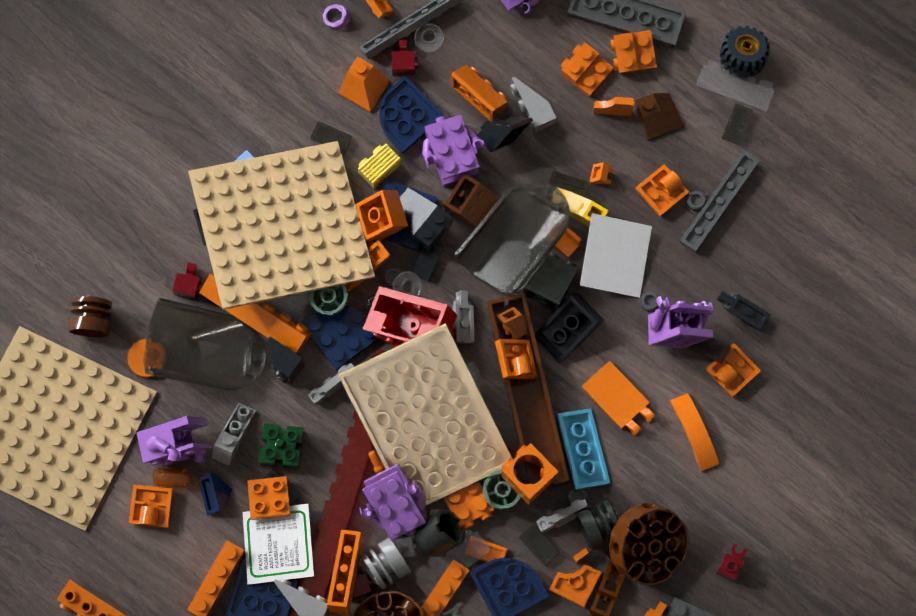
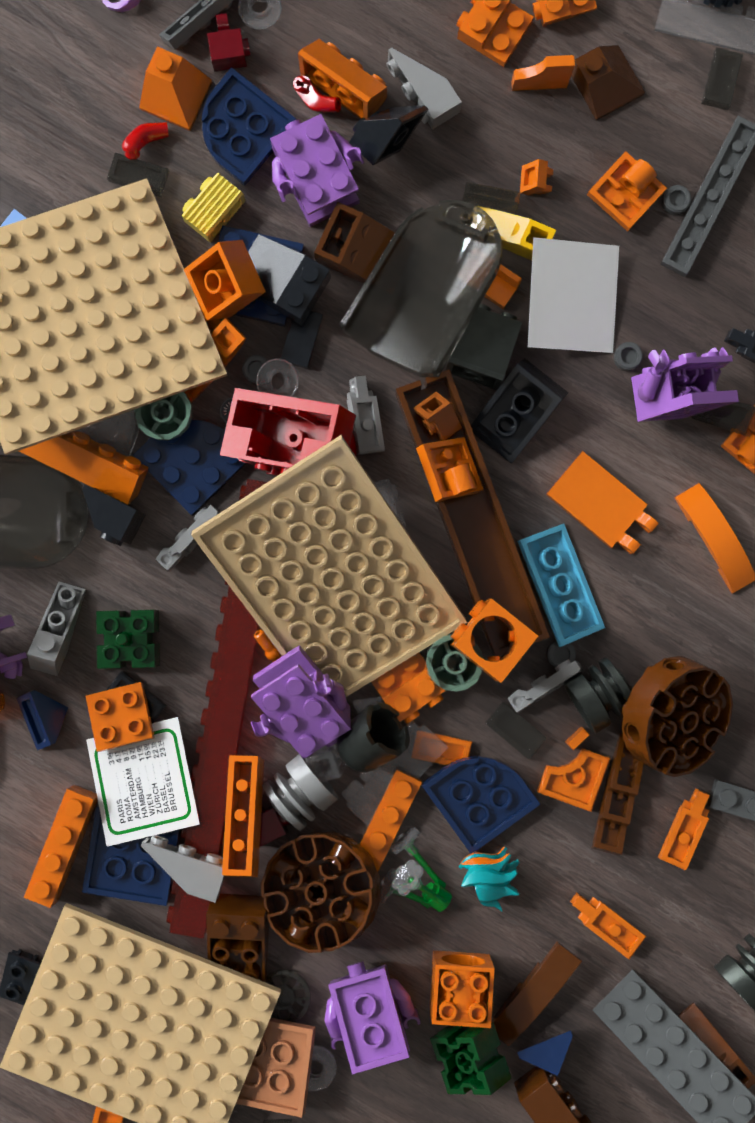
camera: 10 degrees left, 10 degrees up
(338, 112) = (141, 136): none -> red arm
(457, 102) = (313, 98): none -> red arm

